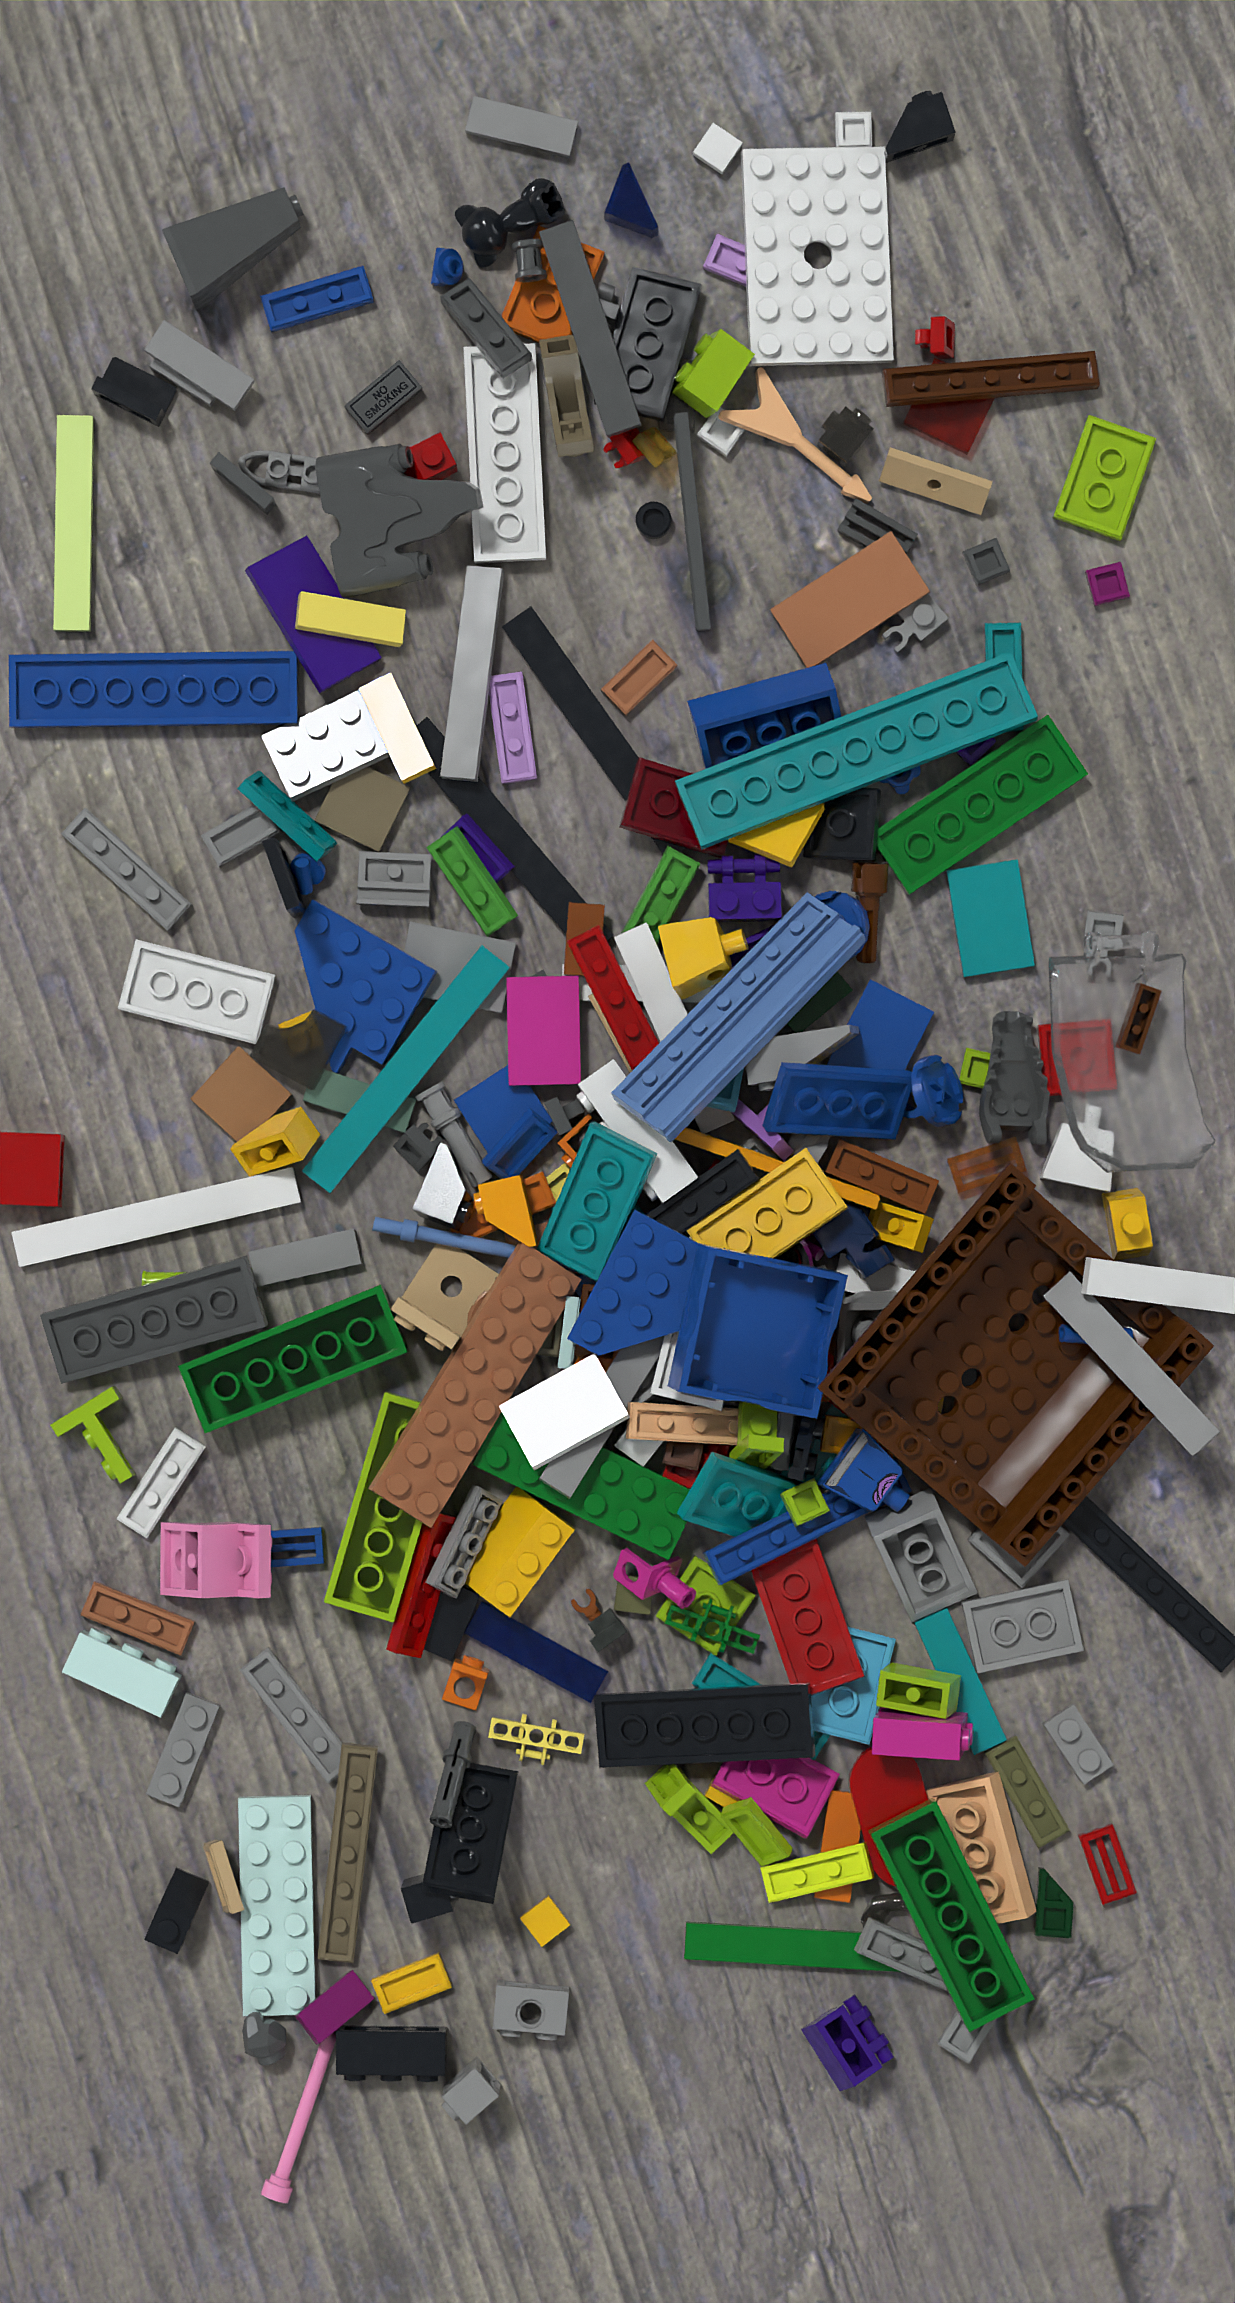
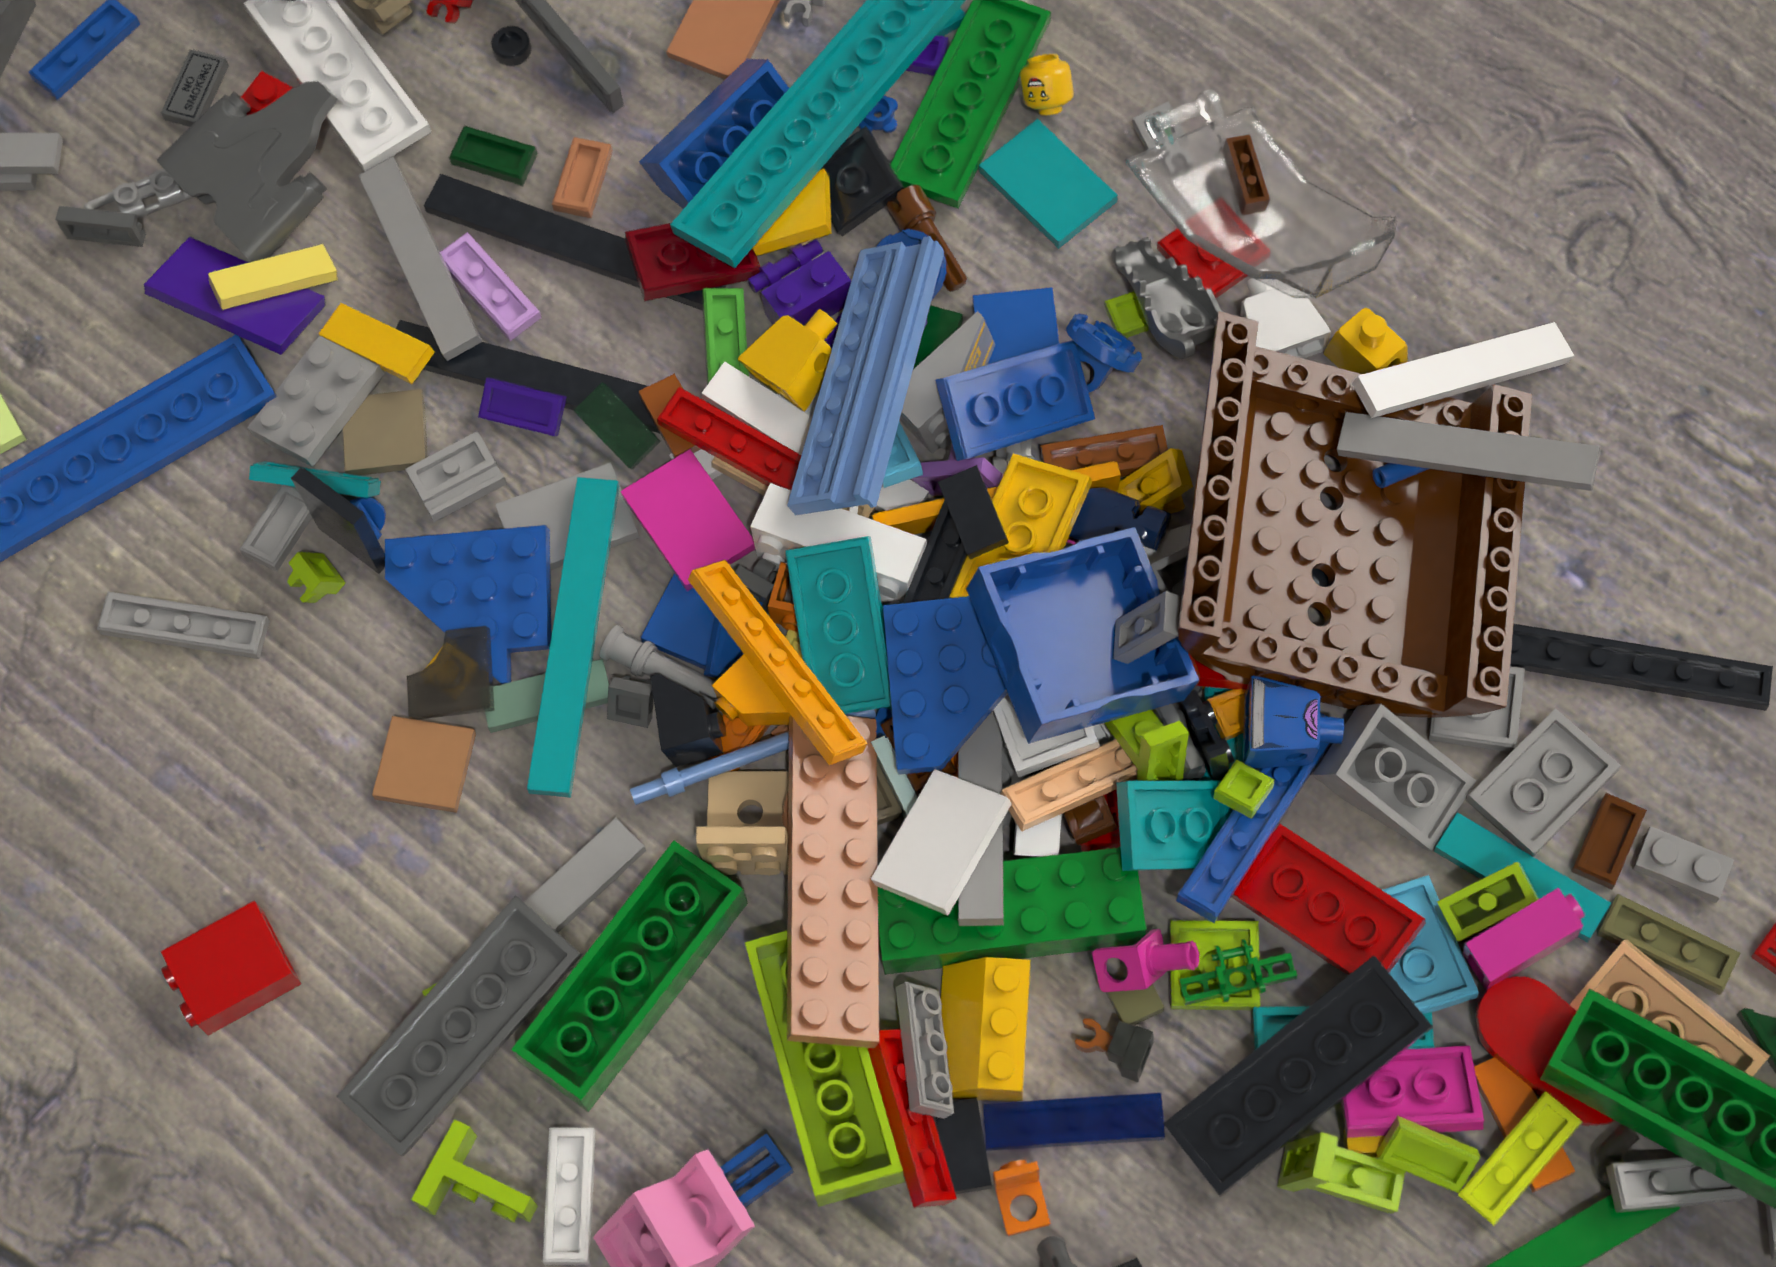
camera: 25 degrees left, 20 degrees down
(156, 1217) = (403, 933): white tile -> none
(196, 992) = (320, 695): white tile -> none
(245, 895) = (316, 574): none -> lime tile
(276, 1142) = (484, 780): yellow slope -> none
(472, 881) = (533, 432): bright green tile -> none
(534, 1197) = (777, 662): none -> light orange tile
(537, 916) = (617, 425): none -> clear green plate
(543, 1743) = (1147, 1206): light yellow piece -> none
(582, 612) = (493, 155): none -> dark green tile
(744, 1181) = (973, 512): none -> black tile
(804, 1358) = (1147, 627): none -> light grey plate
(957, 1174) = (1178, 415): clear orange tile -> none
(1039, 1694) = (1609, 841): none -> reddish brown tile
(1041, 838) = (1046, 83): none -> yellow head

